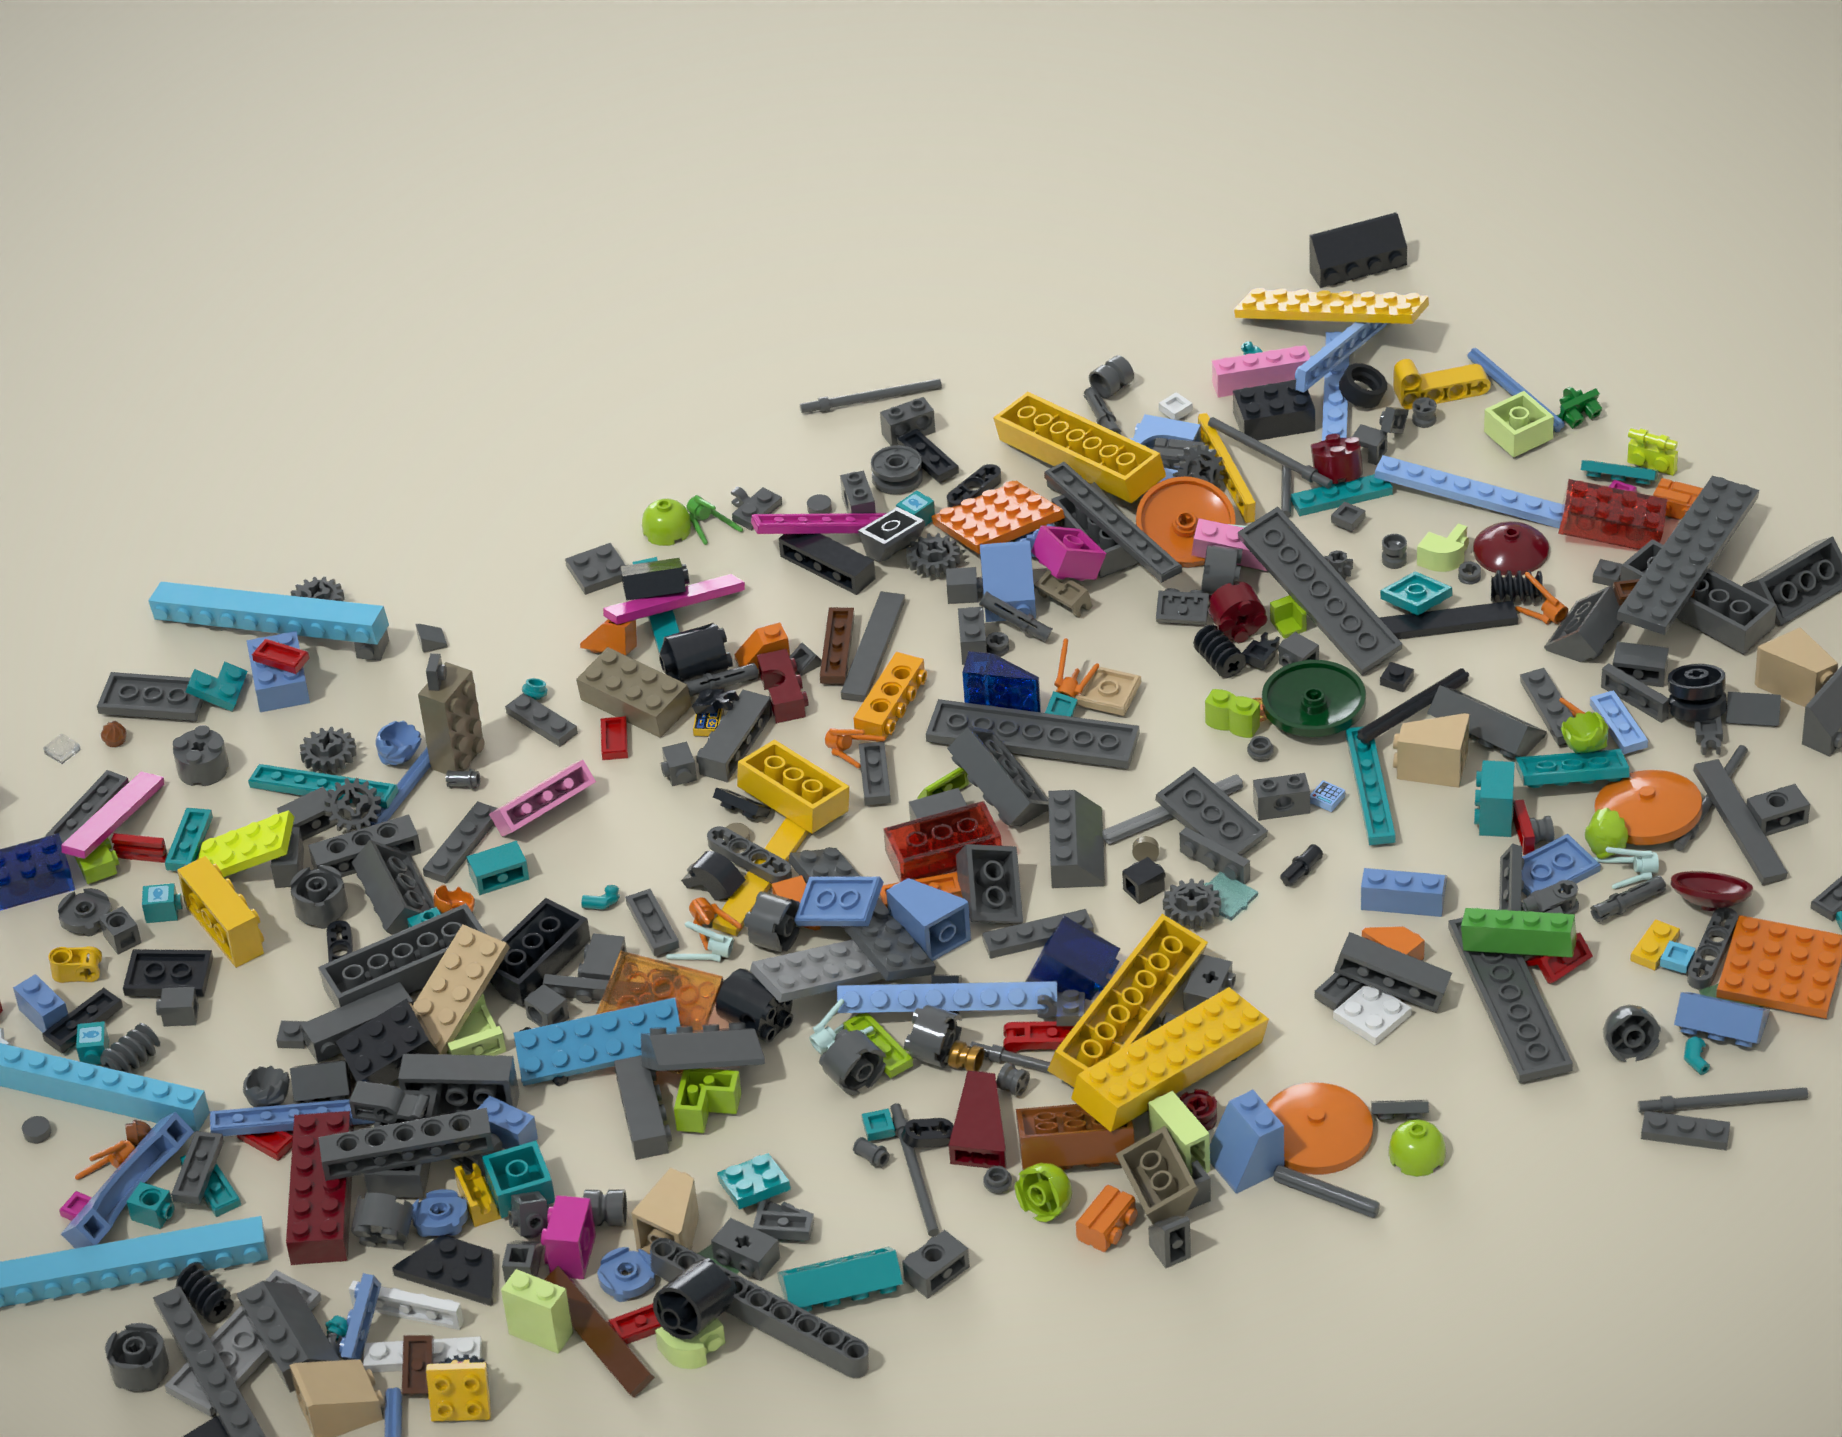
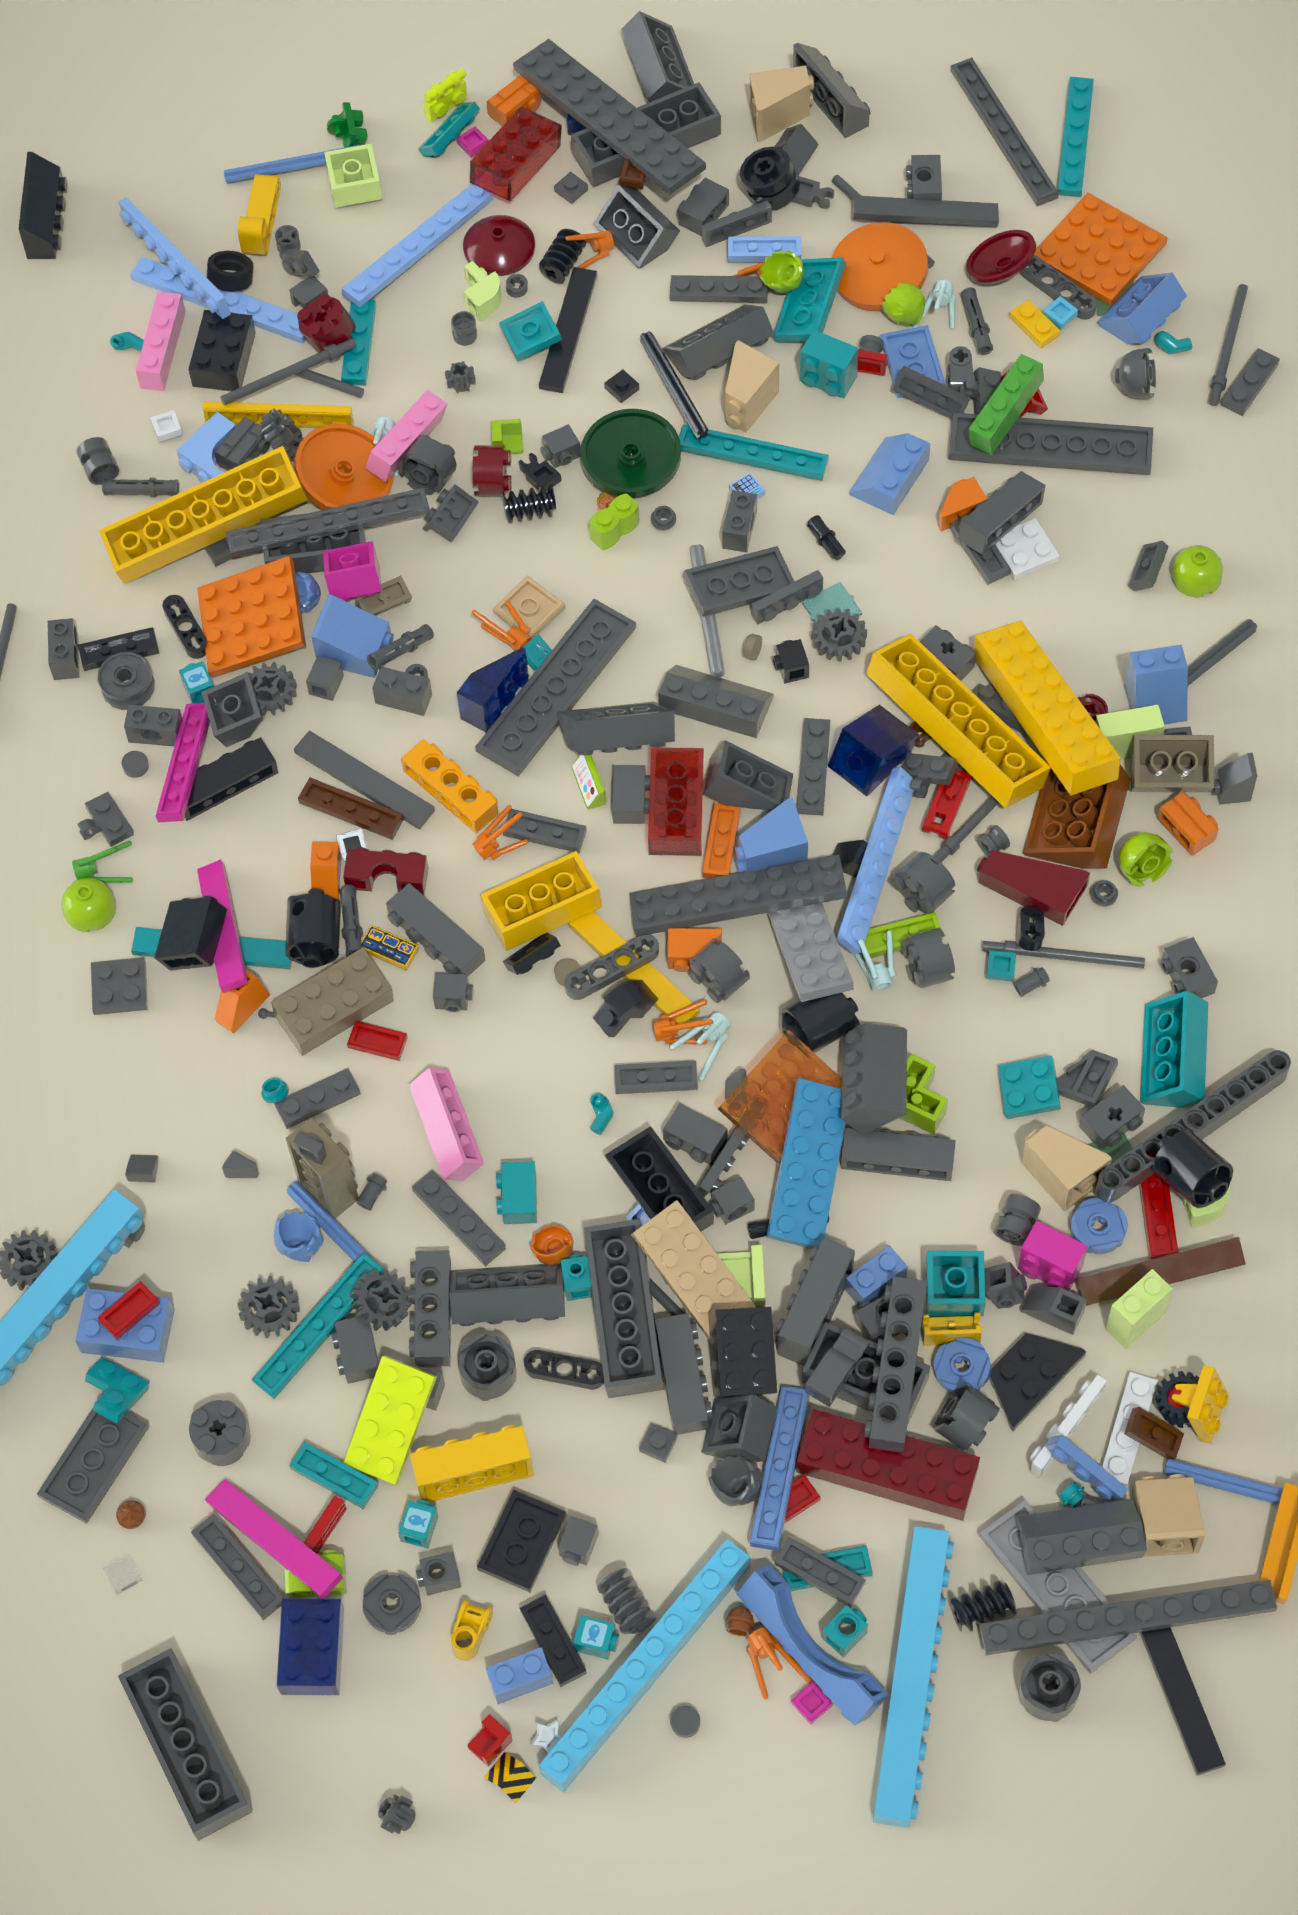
camera: 70 degrees left, 20 degrees up
(712, 699) = (385, 934): black plate -> none
(838, 901) = (733, 903): medium blue tile -> none
(964, 1056) = (955, 864): pearl gold wheel -> none
(1320, 590) = (503, 396): dark grey plate -> none
(1322, 1127) = (1136, 623): orange dish -> none
(1332, 306) = (116, 253): yellow plate -> none
(1348, 516) = (396, 346): dark grey plate -> none

